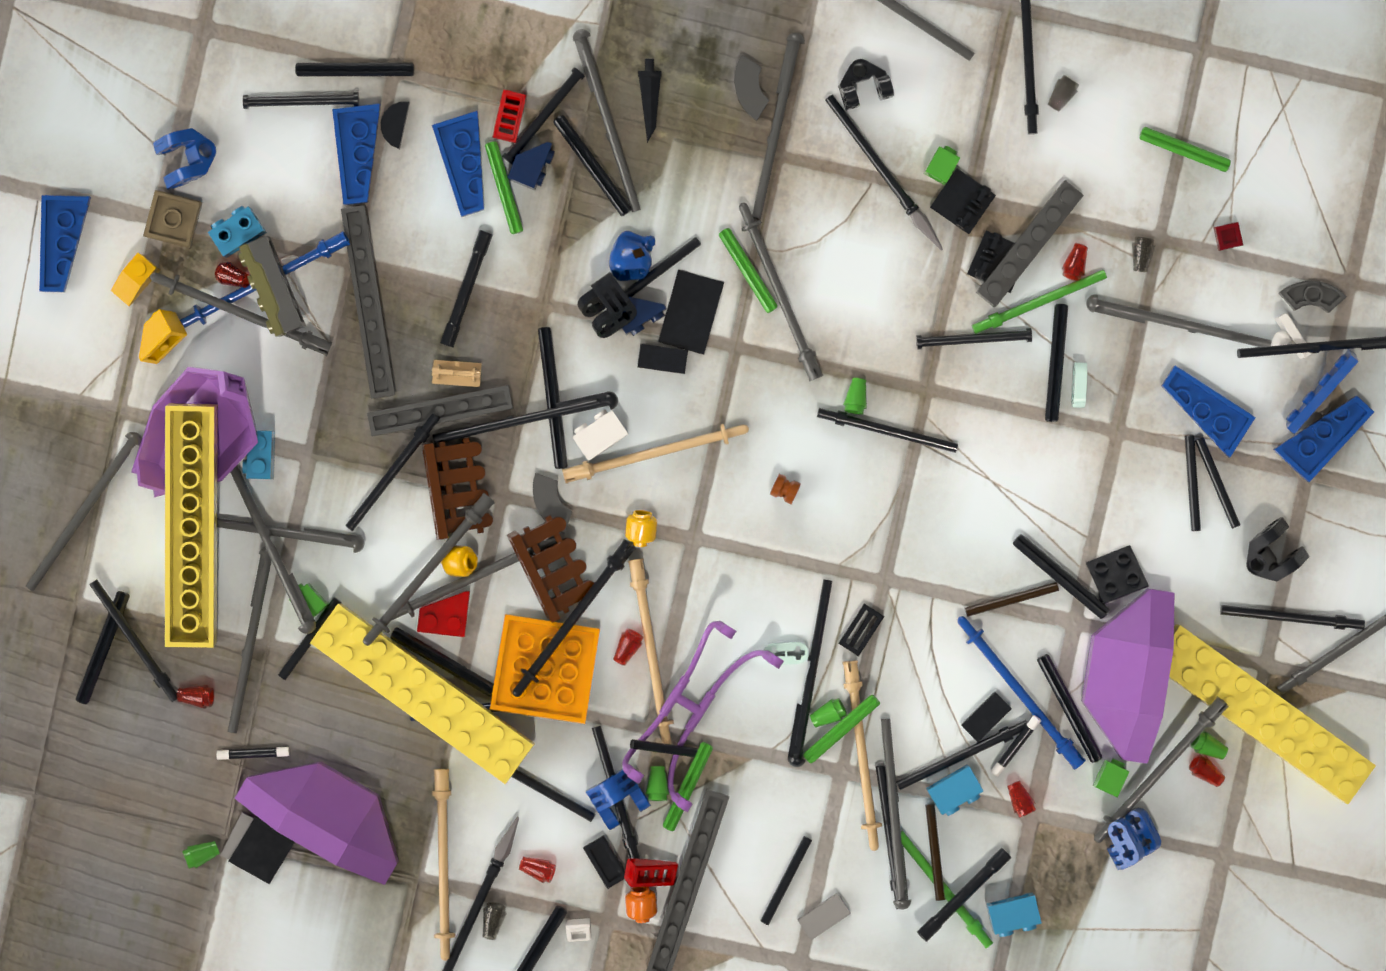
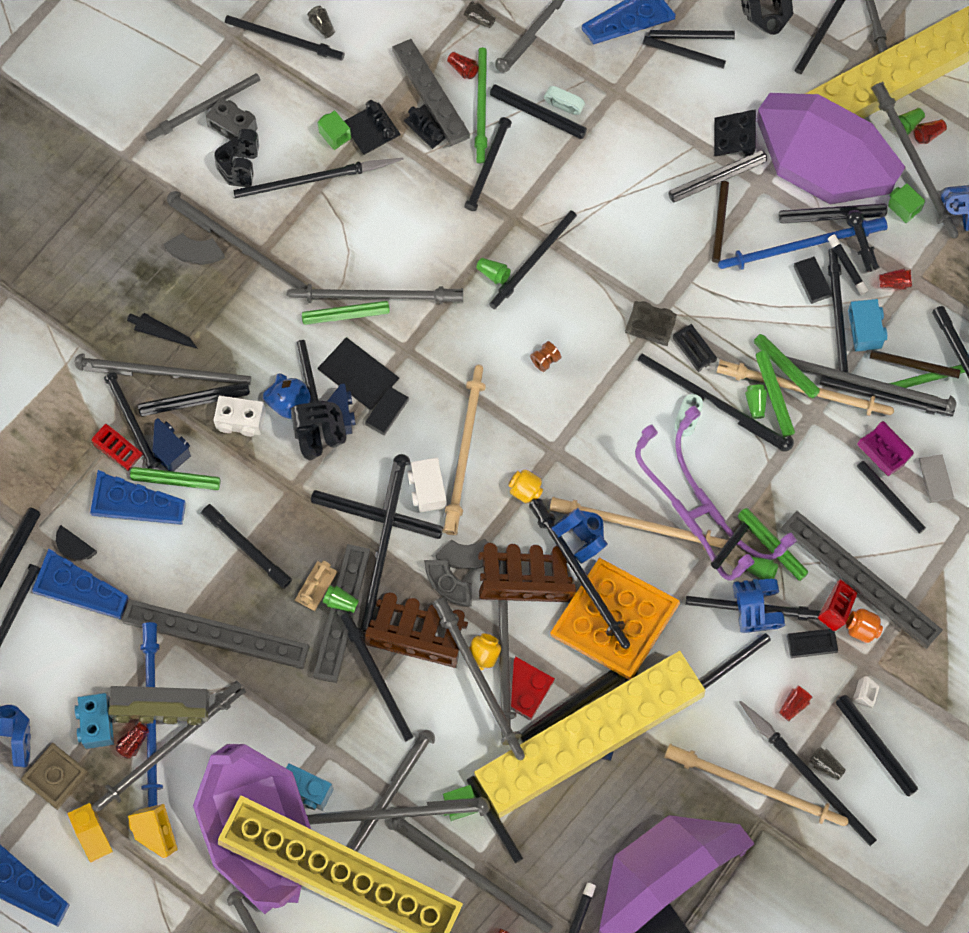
camera: 65 degrees left, 20 degrees down
(447, 405) = (340, 599): none -> bright green cone
(512, 496) = (447, 584): none -> dark grey tile
(592, 219) = (239, 416): none -> white brick
(617, 590) = (593, 537): none -> blue piece
(628, 645) = (625, 541): clear red cone -> none
(830, 857) = (886, 449): none -> magenta bracket
(864, 577) = (651, 323): none -> clear smoke bracket
(876, 728) = (787, 366): none -> bright green axle
(906, 55) = (229, 119): none -> dark grey brick
(1065, 735) = (855, 220): none -> black pin

